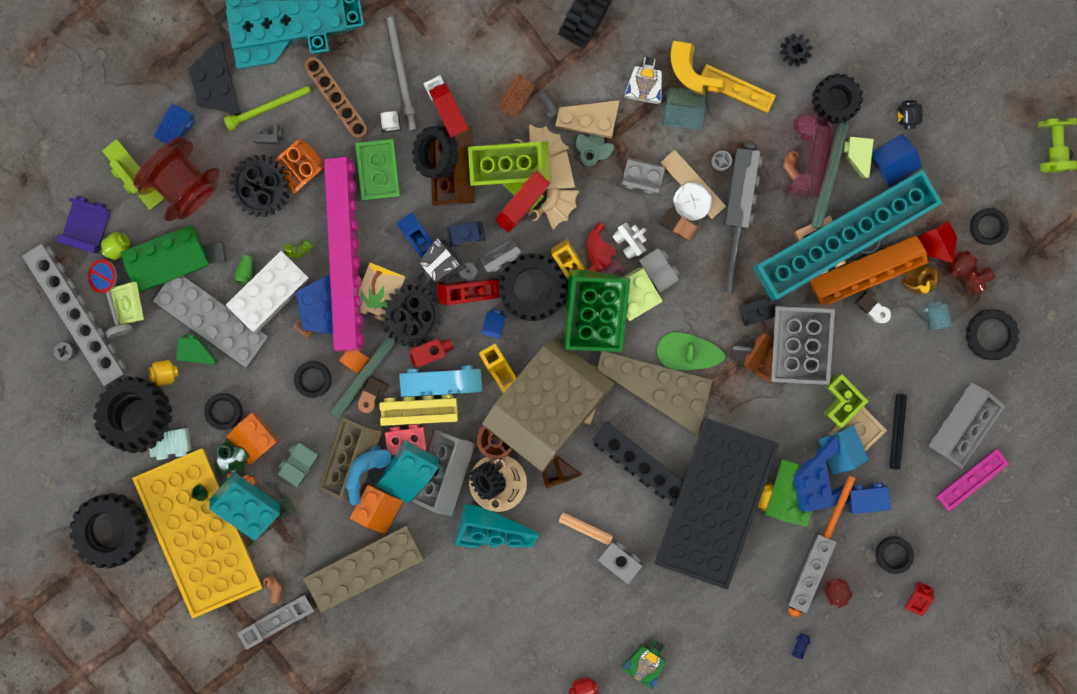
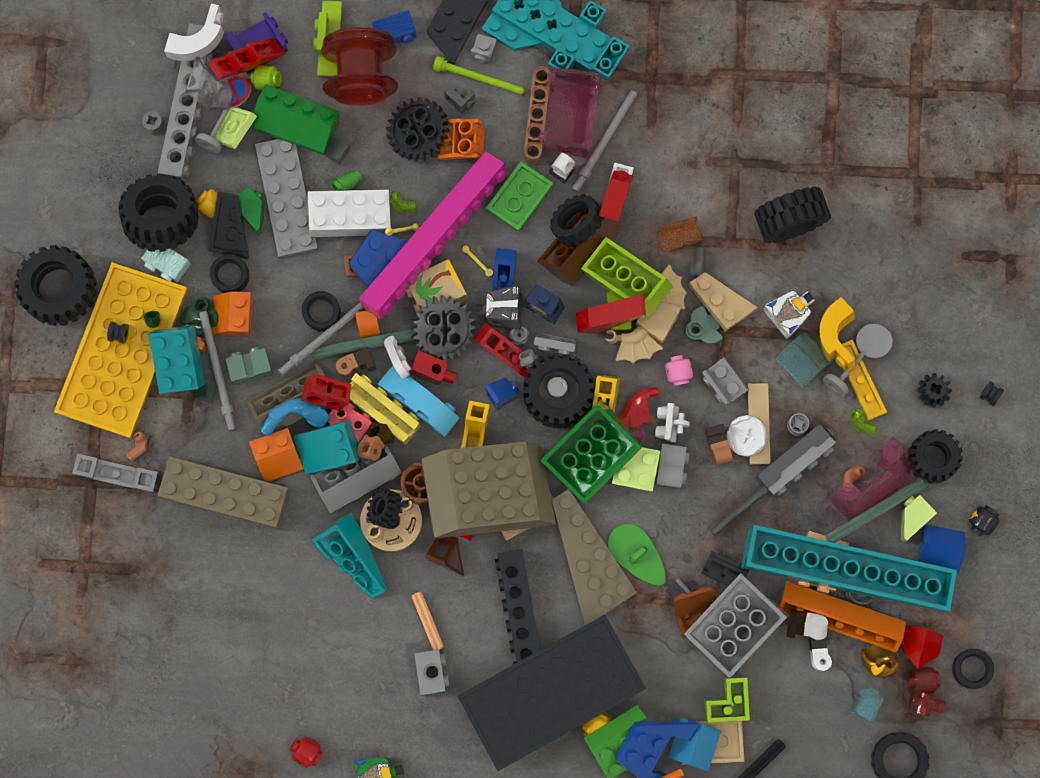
camera: 45 degrees right, 10 degrees down
(45, 264) = (200, 44): none -> white arch
(80, 289) = (207, 88): none -> clear slope
(89, 245) = (247, 58): none -> red slope
(185, 524) = (117, 332): none -> black wheel
(191, 379) = (228, 227): none -> black wing
(251, 82) = (483, 49): none -> light grey bracket
(311, 507) = (226, 408): none -> light grey bar
(323, 258) = (390, 231): none -> light yellow hinge
(328, 430) = (296, 359): none -> light grey bar
(359, 75) = (571, 111): none -> clear pink windscreen
(373, 437) = (326, 392): none -> red brick
(398, 366) = (397, 357): none -> white plate
(405, 244) = (488, 272): none -> light yellow hinge
(437, 440) = (374, 441): none -> leg
(490, 283) = (527, 358): none -> light grey plate
(528, 284) = (557, 387): none -> white tile
(604, 196) = (679, 370): none -> bright pink head
(723, 53) = (873, 342): none -> light grey piece
(764, 120) = (860, 423): none -> clear neon green arm
(838, 16) = (991, 393): none -> black wheel
(851, 299) = (807, 625): none -> leg

